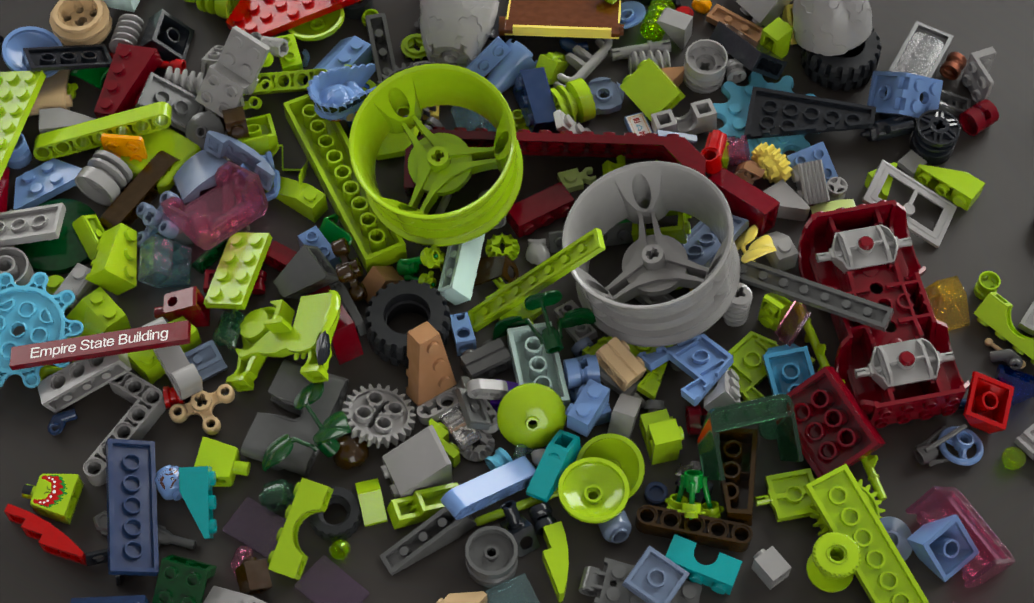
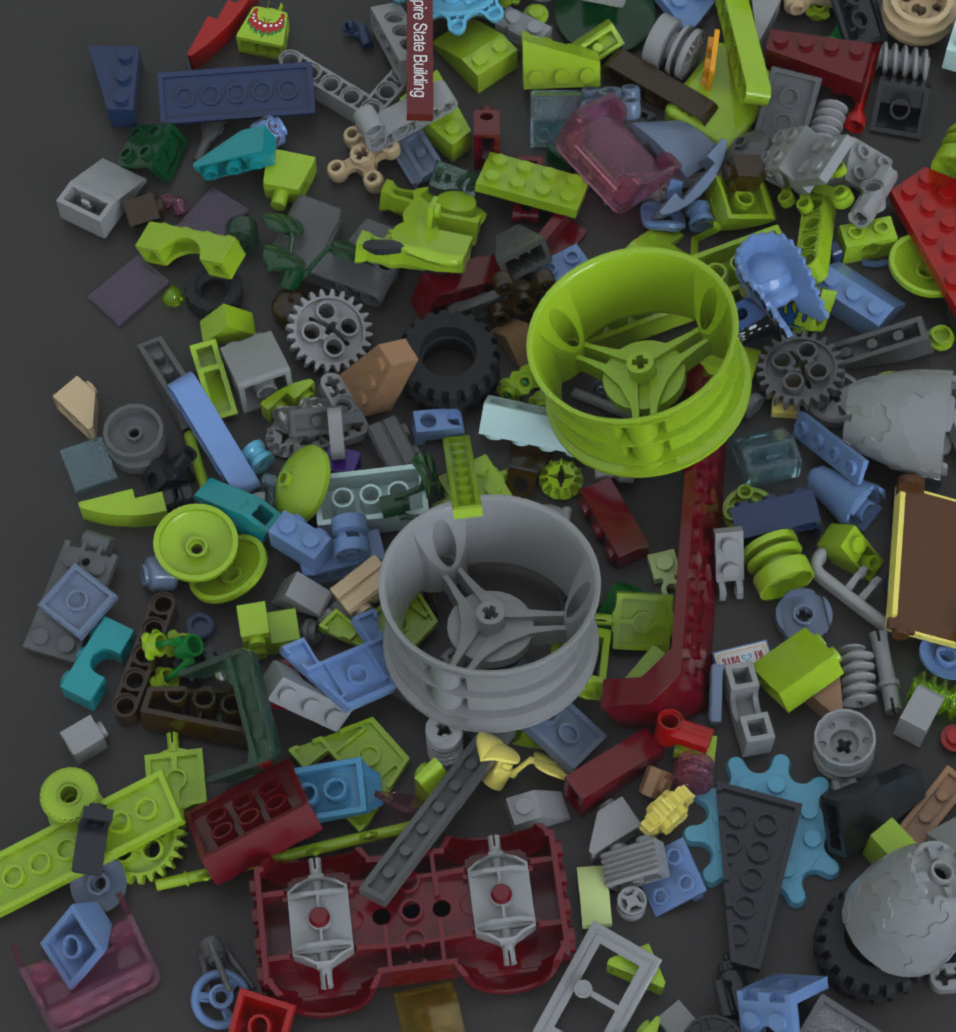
camera: 95 degrees right, 5 degrees up
(873, 531) = (91, 839): none -> black bracket

